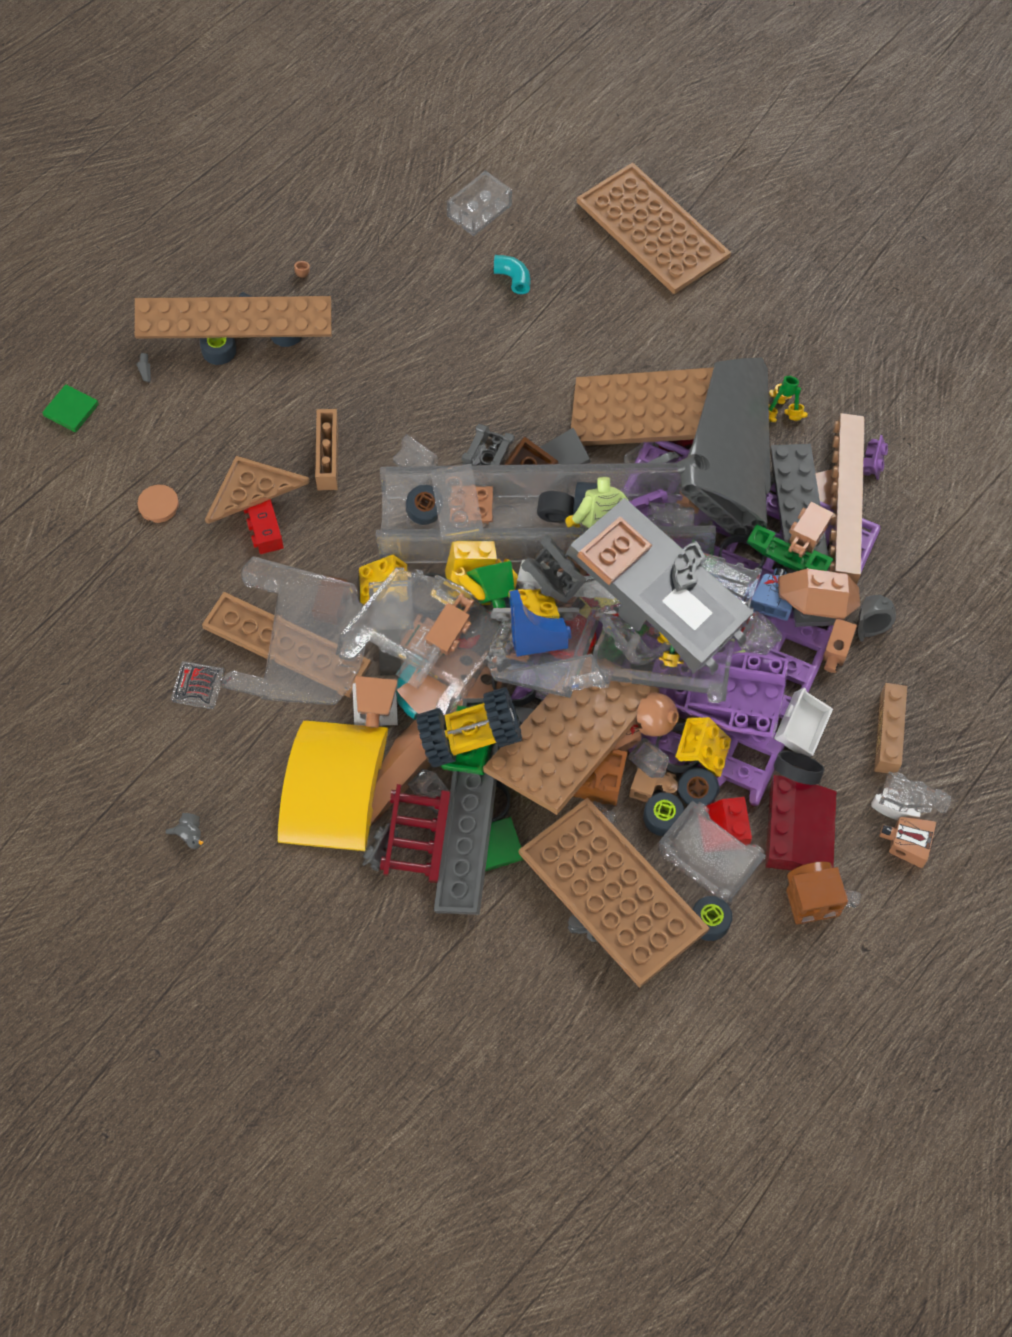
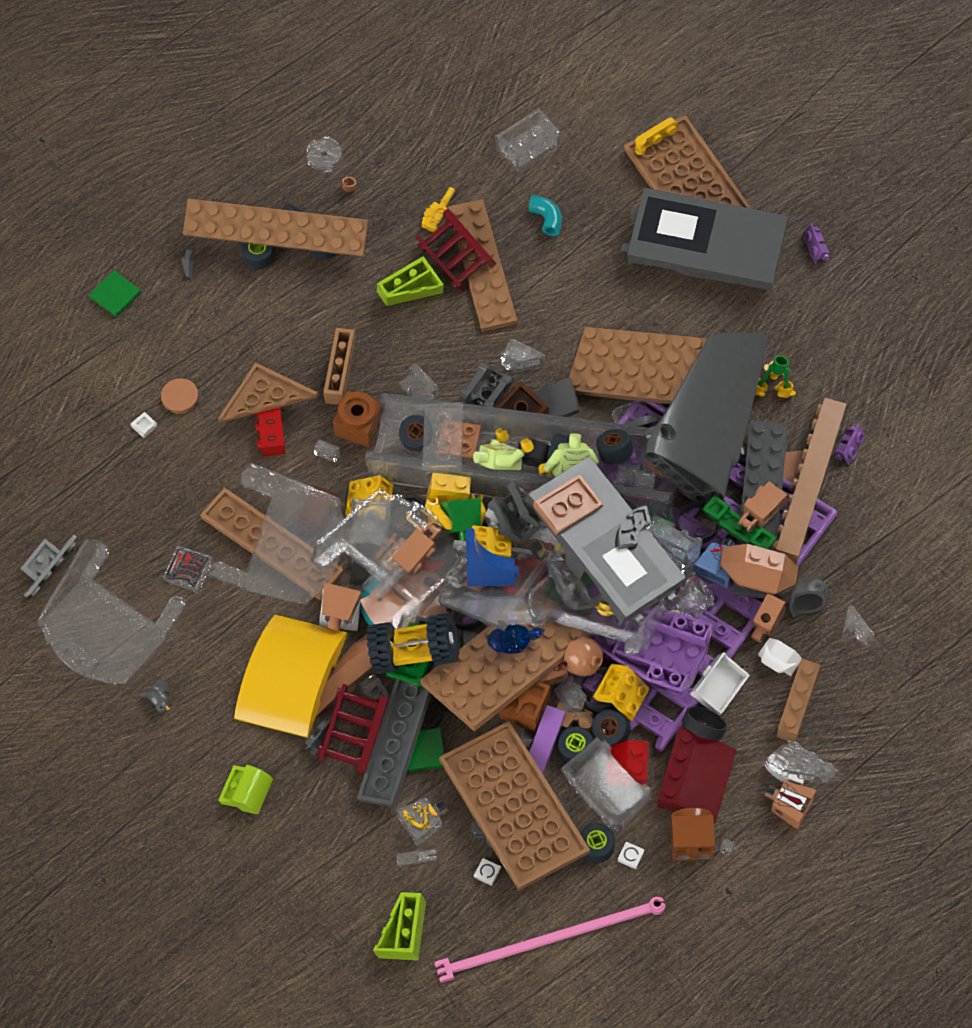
camera: 15 degrees right, 0 degrees up
(31, 700) = (42, 560): none -> light grey bracket
(105, 766) = (97, 629): none -> clear windscreen
(124, 539) = (144, 425): none -> white tile
(270, 251) = (324, 163): none -> clear plate
(305, 919) = (246, 788): none -> lime brick
(328, 538) = (327, 450): none -> clear piece
(357, 499) = (357, 418): none -> dark orange piece
(386, 356) = (410, 283): none -> lime wedge
(397, 285) = (433, 215): none -> yellow piece
(430, 300) = (472, 246): none -> dark red fence
(456, 331) = (486, 284): none -> medium nougat plate
(511, 923) = (421, 819): none -> clear torso
(513, 966) = (416, 857): none -> clear axle
(517, 415) = (521, 357): none -> clear slope
(517, 1053) = (404, 929): none -> lime wedge
(522, 514) = (500, 455): none -> yellowish green torso
(580, 706) = (513, 639): none -> clear blue hair
(596, 970) = (487, 872): none -> white tile
(608, 182) = (655, 135): none -> yellow plate
(631, 807) = (546, 736): none -> medium lavender tile
(643, 487) = (614, 446): none -> black wheel
(676, 1038) = (450, 968): none -> bright pink hinge
(684, 274) = (707, 239): none -> dark grey piece
(750, 926) = (631, 855): none -> white tile
(789, 268) = (813, 238): none -> medium lavender hinge
(858, 684) = (779, 657): none -> white slope
(928, 637) = (855, 623): none -> clear slope

